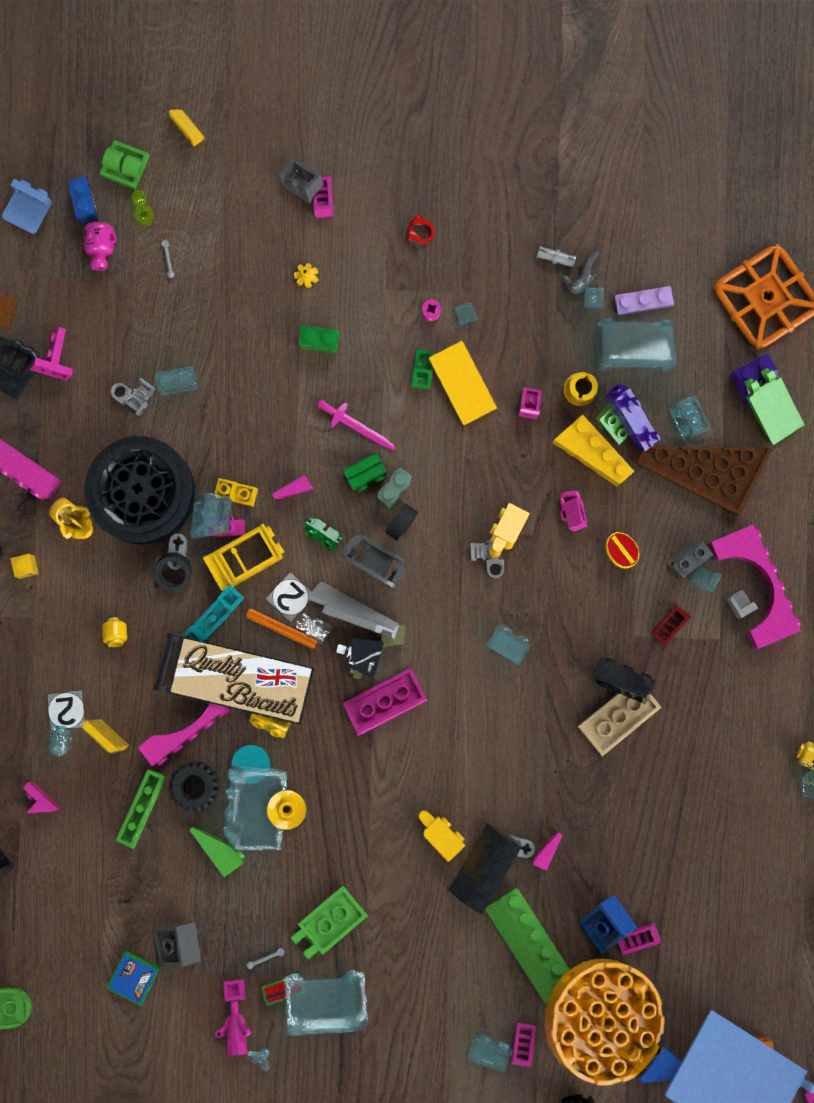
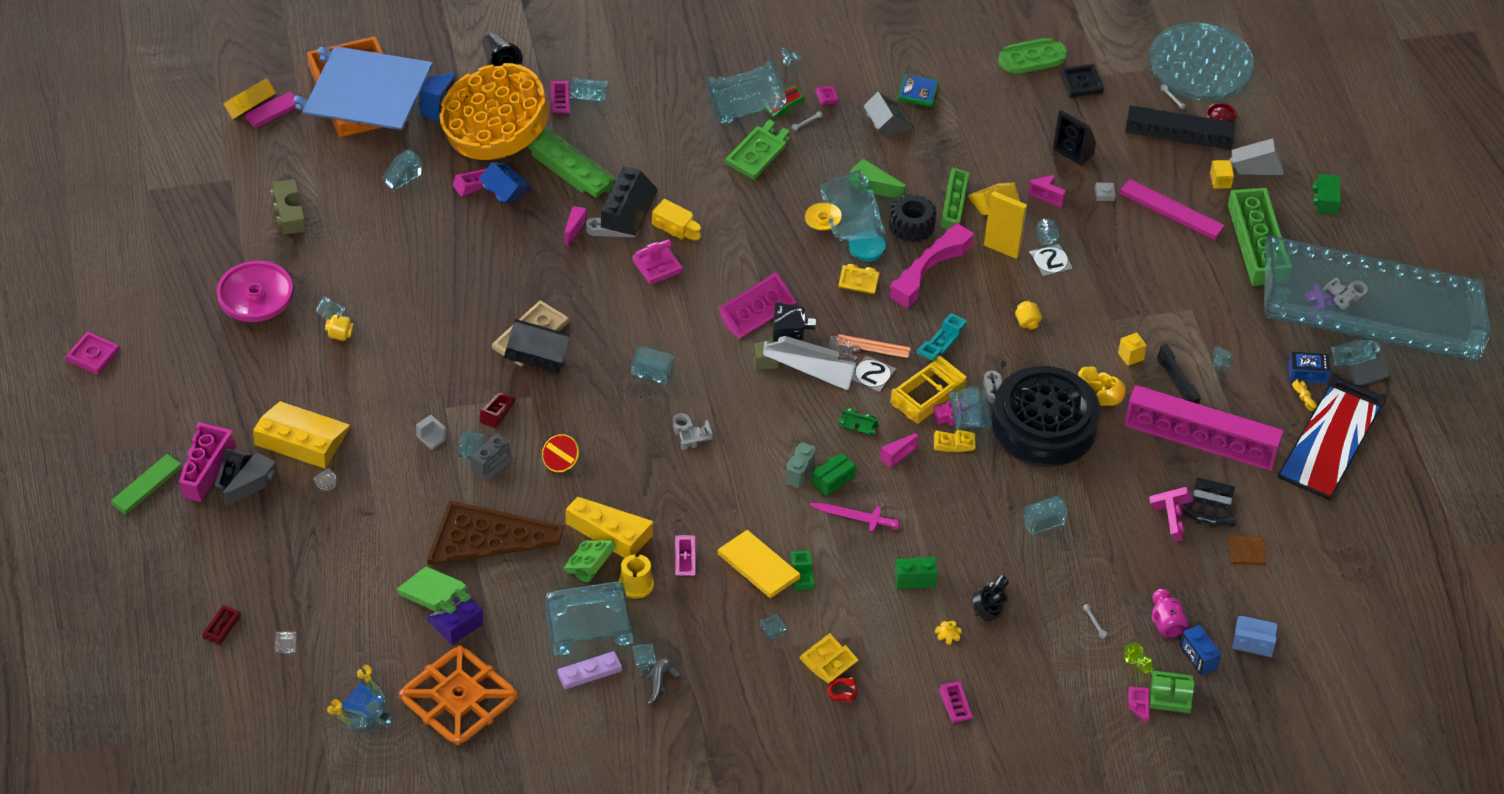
camera: 165 degrees right, 35 degrees down
(99, 800) = (981, 198): none -> yellow slope
(137, 397) = (1079, 498): light grey piece -> none
(156, 164) = (1139, 702): none -> dark pink tile
(168, 585) = (991, 365): black tyre -> none
(186, 126) = (1121, 737): yellow slope -> none
(236, 679) = (902, 292): flag -> none
(236, 1032) = (815, 67): dark pink piece -> none
(258, 294) = (990, 599): none -> black pin
(300, 180) = (982, 705): dark grey window -> none
(374, 560) = (807, 391): dark grey piece -> none
(401, 522) = (784, 435): black tyre -> none
(424, 266) = (828, 658): none -> yellow slope
(432, 314) = (809, 625): dark pink wheel -> none
(473, 780) = (657, 262): none -> dark pink plate
(508, 529) = (678, 447): yellow hinge -> none
(556, 256) = (692, 691): light grey pin -> none
(573, 510) = (617, 477): dark pink piece -> none
(632, 416) = (578, 546): dark purple brick -> none
(689, 418) = (515, 574): clear light blue bracket -> none
(712, 966) = (402, 169): none -> clear light blue slope
(779, 618) = (435, 477): dark pink arch -> none

